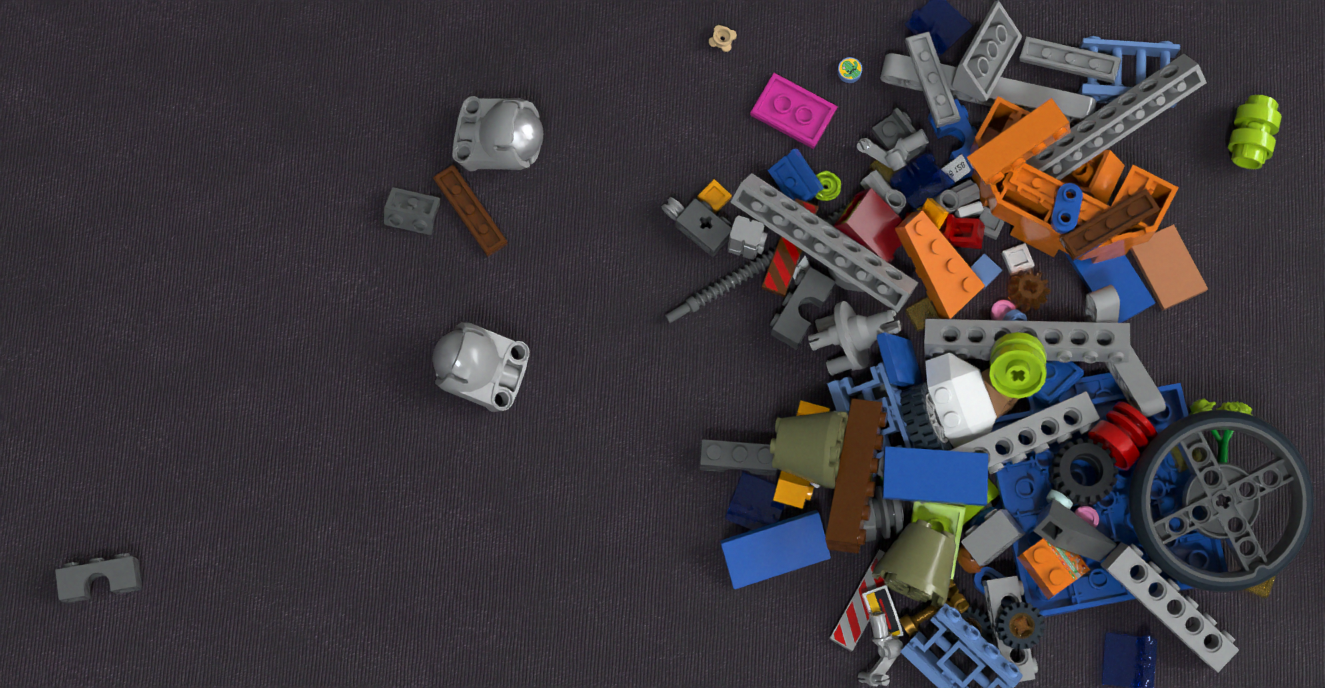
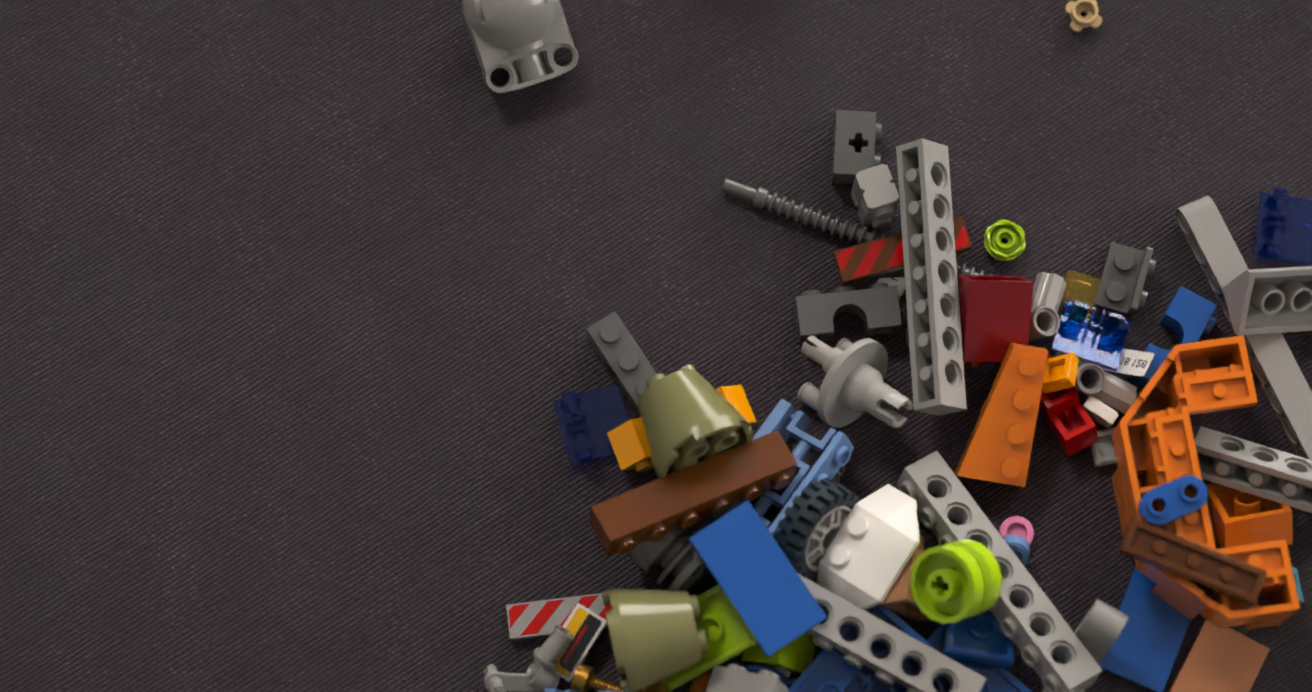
camera: 55 degrees right, 0 degrees up
(673, 208) = (849, 99): light grey bush -> none
(714, 196) = (897, 132): light orange tile -> none
(775, 549) = (552, 472): blue tile -> none
(793, 110) = (1063, 147): dark pink tile -> none
(795, 177) = (987, 201): blue plate -> none
(849, 70) = (1159, 172): tile -> none
(895, 157) = (1096, 288): light grey pin -> none
(899, 360) = (864, 453): blue tile -> none
(919, 312) = (946, 443): clear yellow tile -> none
(932, 79) = (1215, 262): light grey tile -> none
(986, 270) = (1046, 479): medium blue tile -> none
(1017, 259) = (1090, 506): white tile -> none
(1020, 142) = (1204, 393): orange wedge -> none
(1026, 297) = (1074, 539): clear orange gear -> none

